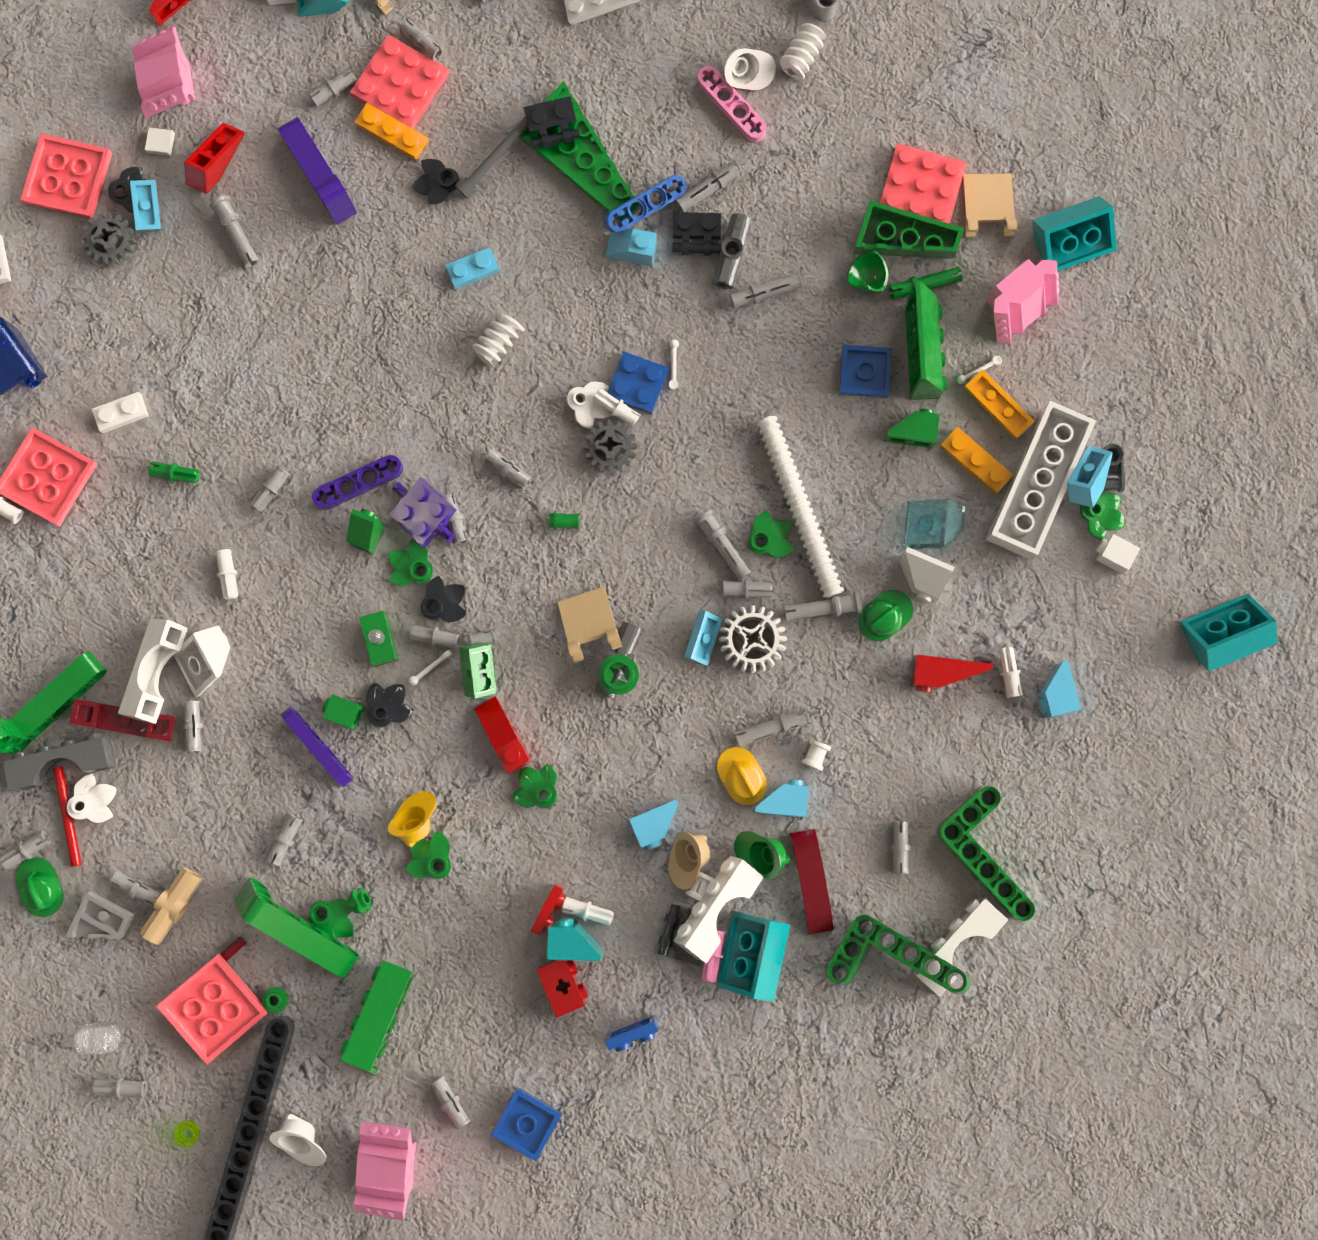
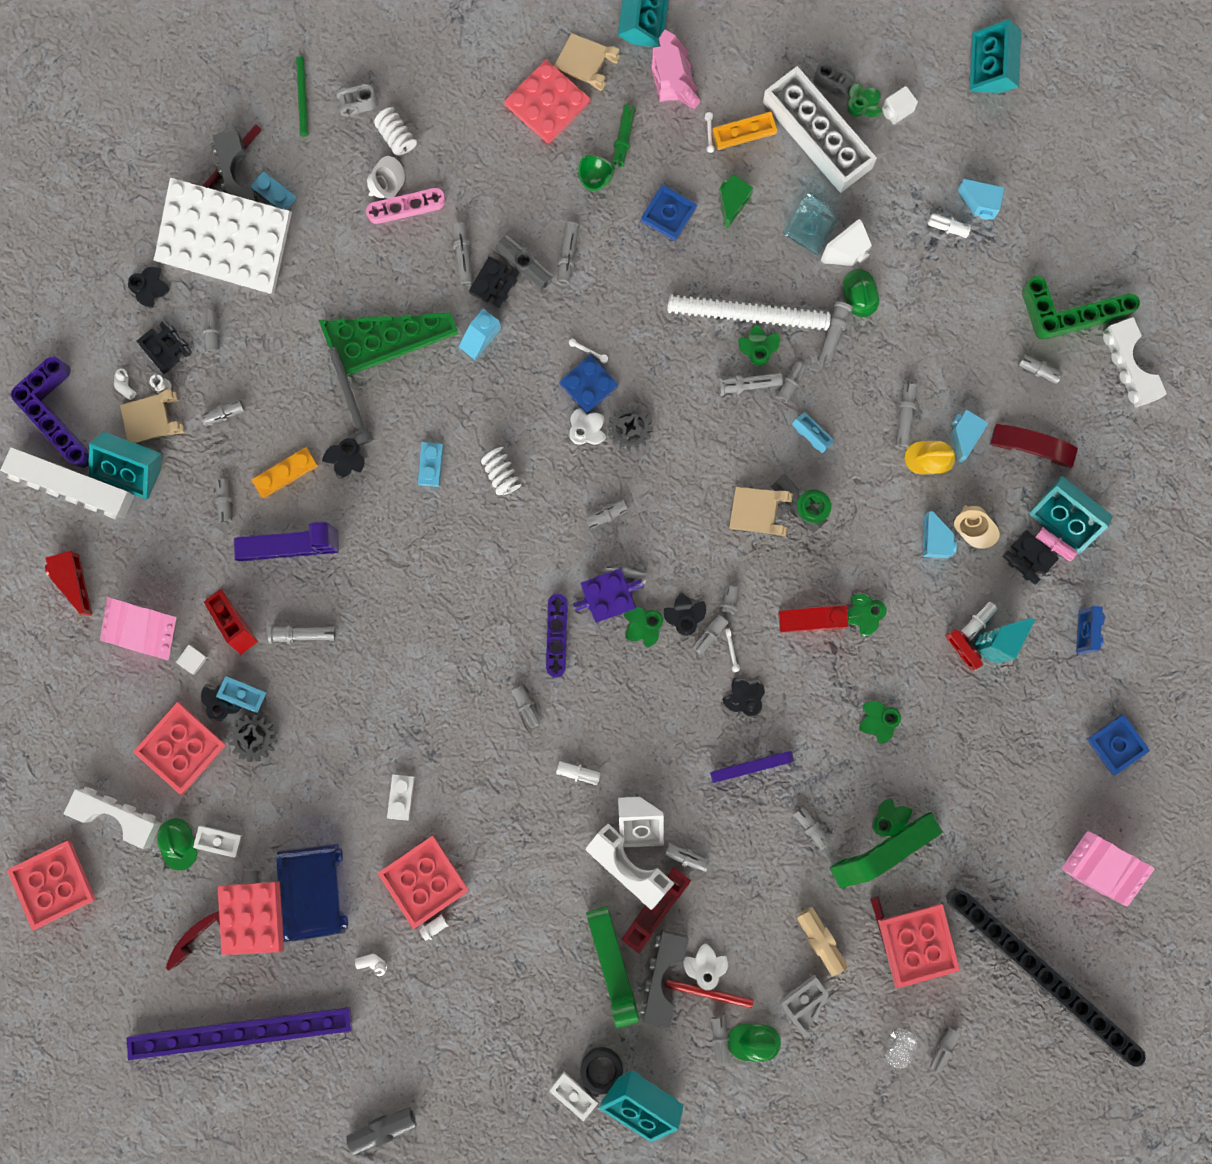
camera: 65 degrees left, 0 degrees up
(134, 888) = (794, 964): light grey pin -> none
(173, 472) = (474, 776): green axle -> none
(179, 1136) = (1011, 1013): clear neon green plate -> none
(282, 1000) = (927, 894): green plate -> none
(297, 1140) = (1052, 925): white piece -> none
(342, 711) = (734, 733): green brick -> none
(359, 901) = (889, 791): green plate -> none
(364, 530) = (601, 646): green slope -> none
(376, 1017) = (987, 819): green wedge -> none
(378, 638) = (690, 678): green piece -> none
(400, 81) = (247, 446): coral plate -> none
(412, 818) = (844, 717): yellow piece -> none
(449, 1102) = (1074, 796): light grey pin -> none
(477, 670) = (755, 612): piece -> none
(549, 115) = (343, 342): black plate -> none
(562, 520) = (669, 492): green pin -> none
(562, 1001) = (1039, 671): red brick -> none
(616, 407) = (602, 408): white axle -> none
(645, 204) = (455, 307): blue beam -> none
(699, 888) = (1006, 530): white bush -> none
(699, 932) = (1037, 541): white arch -> none
(761, 853) = (999, 471): green piece -> none
(762, 645) = (826, 382): white gear -> none
(816, 755) = (942, 394): white bush -> none
(897, 951) = (1119, 406): green beam -> none
(906, 234) = (579, 129): green wedge -> none
(923, 344) = (672, 160): green slope -> none
(937, 672) = (926, 274): red slope -> none
(976, 460) = (777, 169): light orange plate -> none
(1089, 477) = (835, 92): medium azure slope -> none

